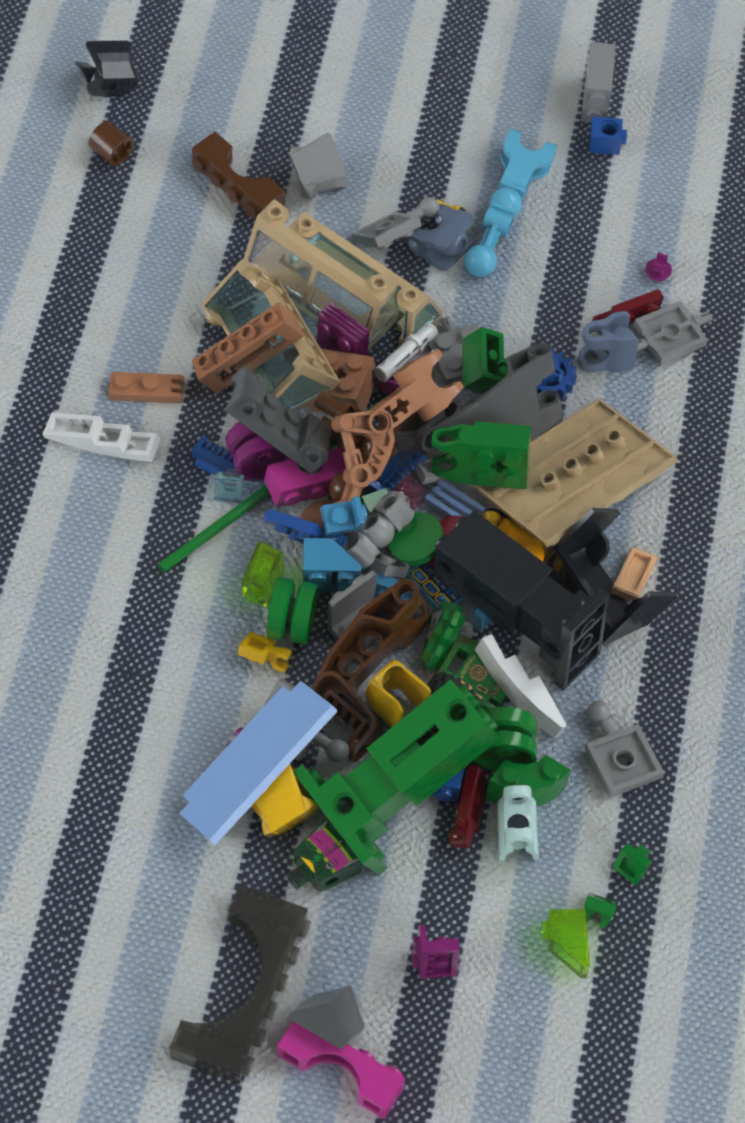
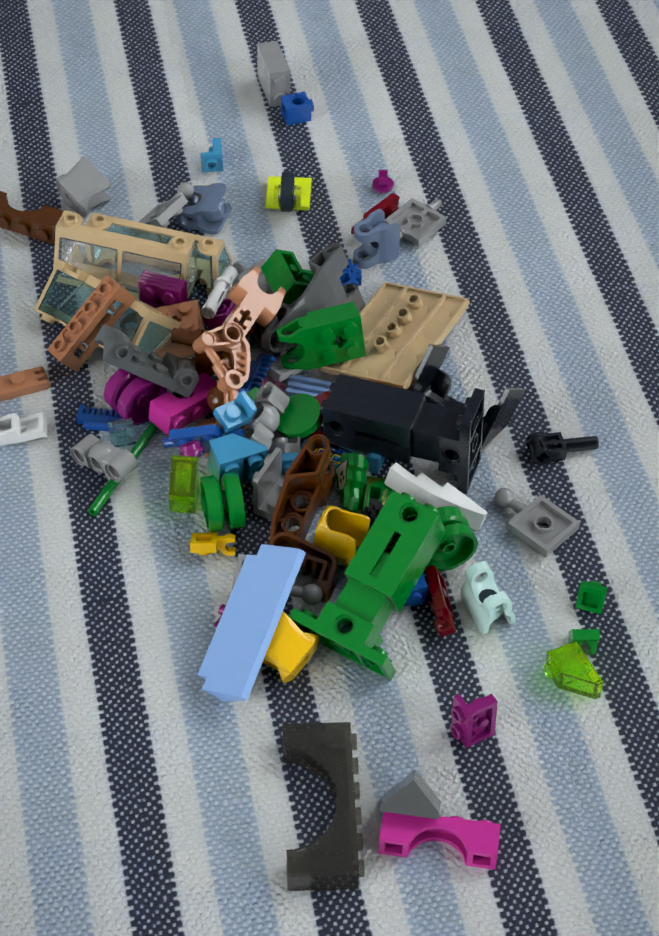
camera: 20 degrees left, 10 degrees down
(196, 511) = (104, 457): none -> light grey piece
(282, 540) = (191, 449): none -> magenta plate
(324, 859) = (342, 681): torso -> none
(482, 175) = (213, 160): none -> dark azure bracket
(506, 202) = (243, 147): medium azure piece -> none
(545, 246) = (288, 192): none -> neon yellow plate
(545, 778) = (490, 550): green brick -> none
(634, 574) = (481, 382): light nougat tile -> none
(683, 672) = (555, 448): none -> black connector

